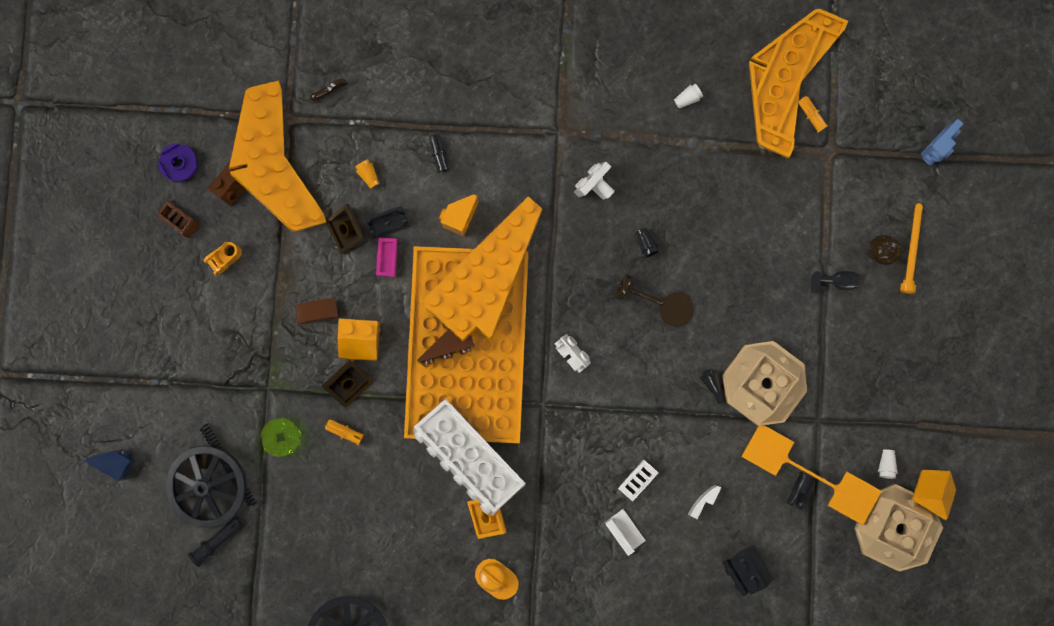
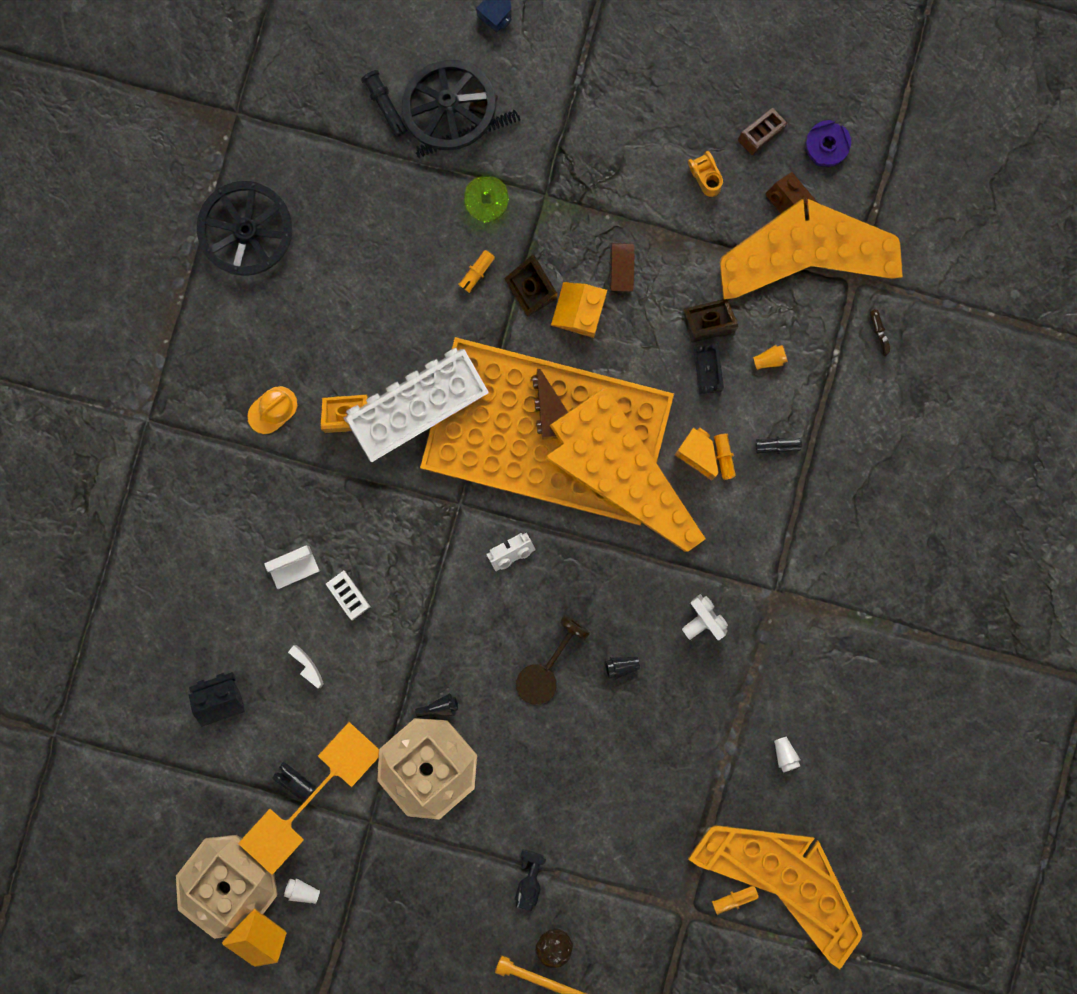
camera: 105 degrees right, 0 degrees up
(387, 257) = (668, 360): dark pink plate -> none
(457, 194) = (724, 456): none -> light orange axle

